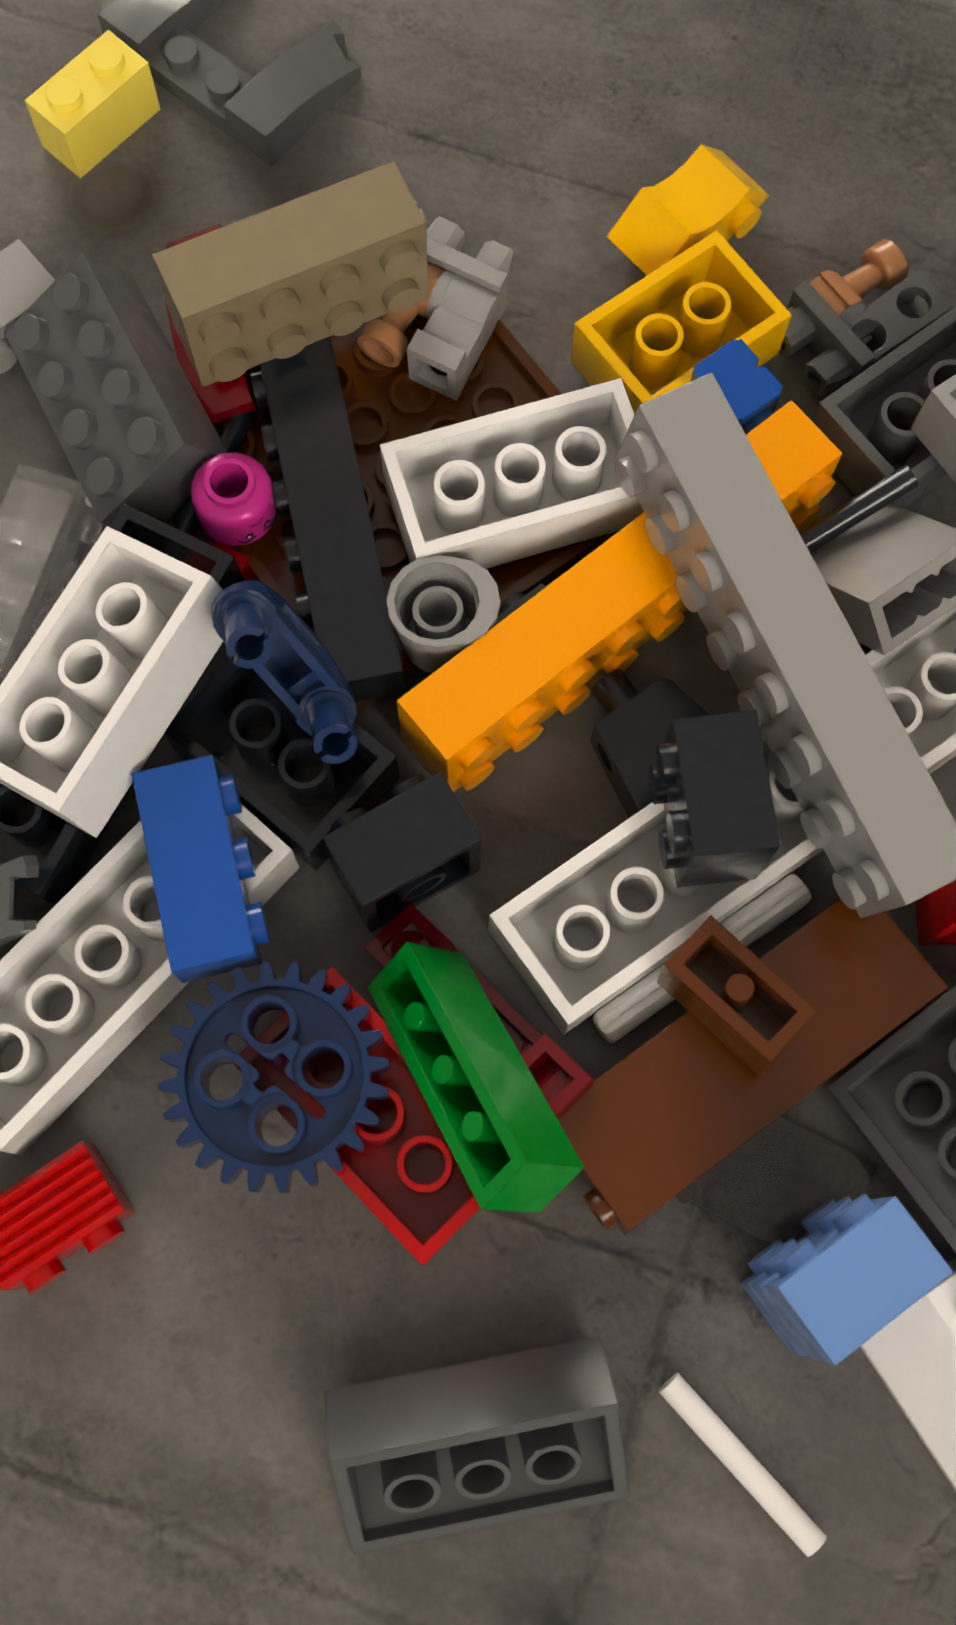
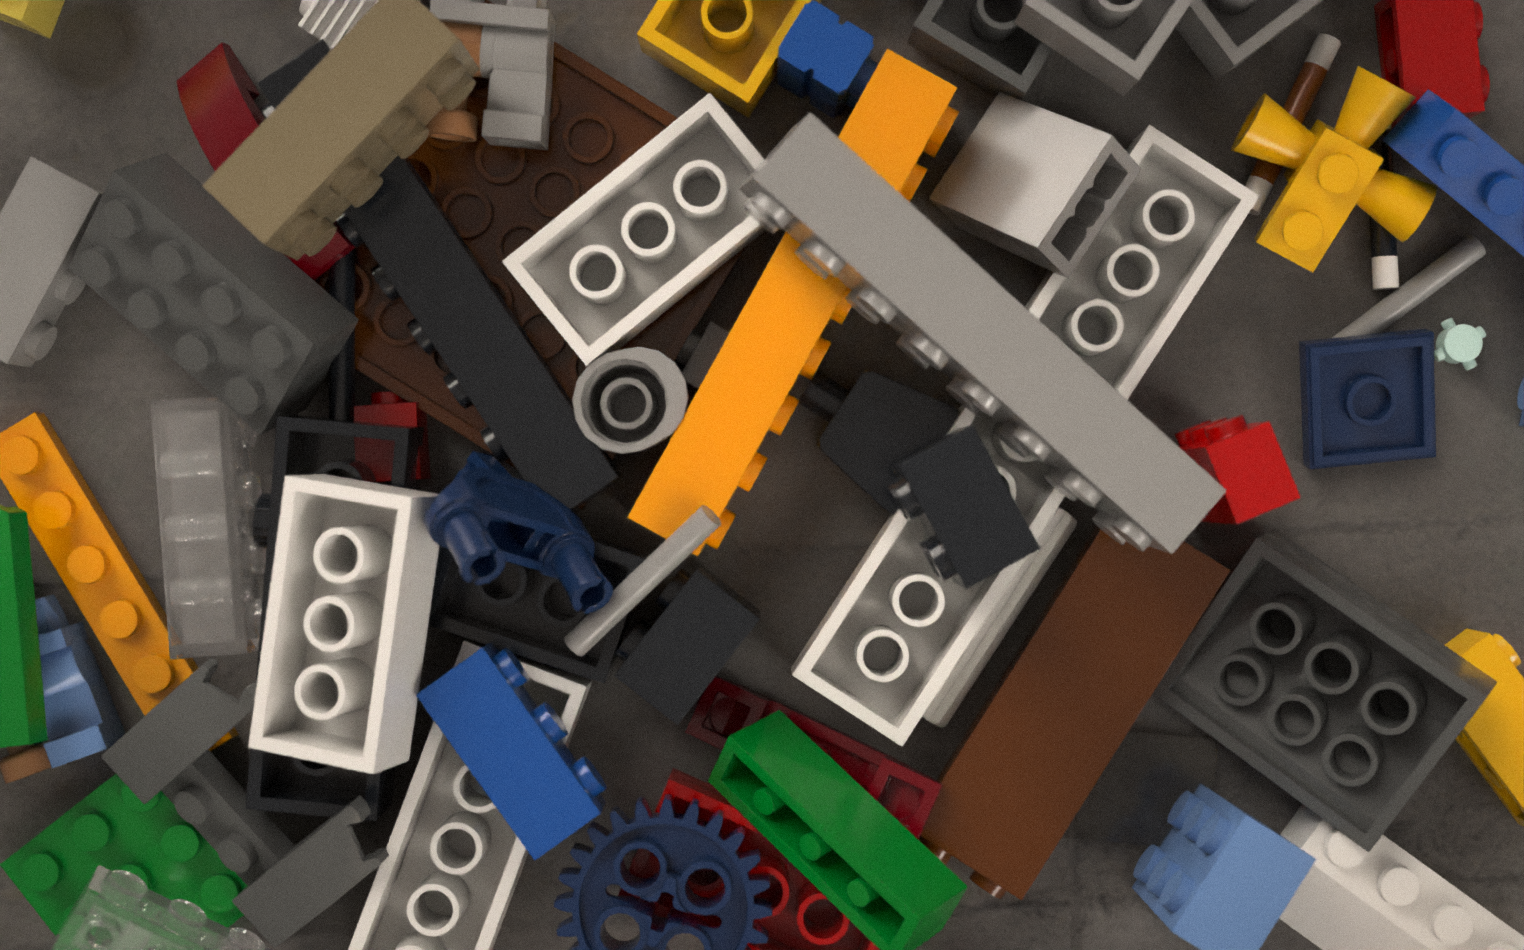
camera: 15 degrees left, 15 degrees up
(233, 498) = (378, 361): dark pink head -> none
(386, 762) = (643, 580): none -> light grey bar
(735, 995) = (1044, 670): reddish brown brick -> none
(858, 508) = (977, 145): black bar -> none

